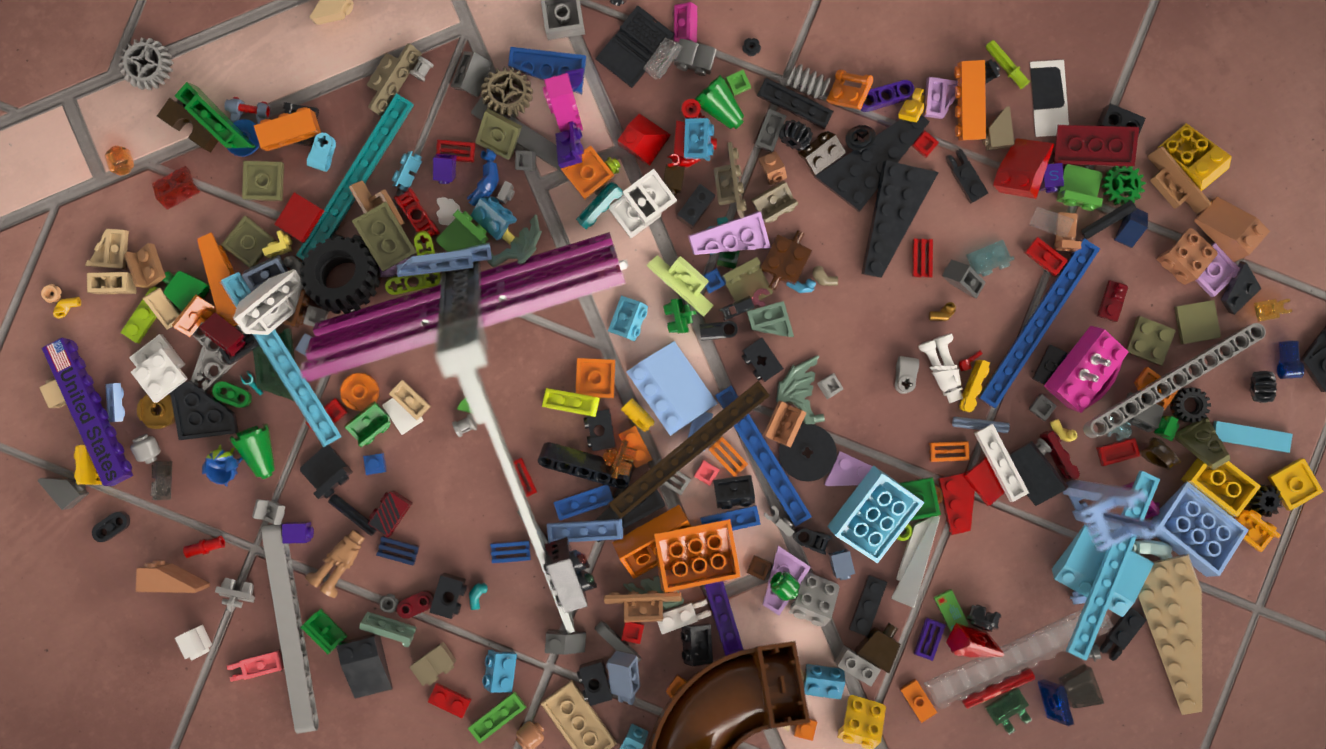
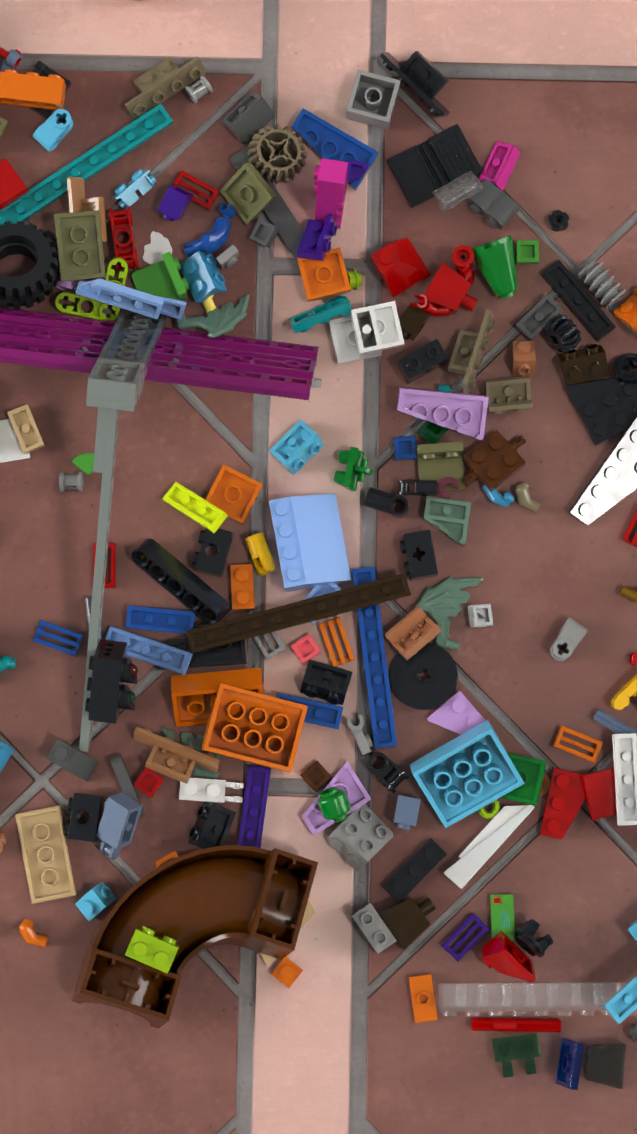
camera: 25 degrees right, 5 degrees down
(617, 459) = (218, 588): clear orange hips -> none
(684, 281) = (374, 434): yellowish green bracket -> none
(698, 139) = (456, 291): dark azure bracket -> none
(824, 681) = (329, 930): dark azure bracket -> none
(863, 722) = (351, 993): yellow bracket -> none
(947, 374) = (611, 660): white piece -> none

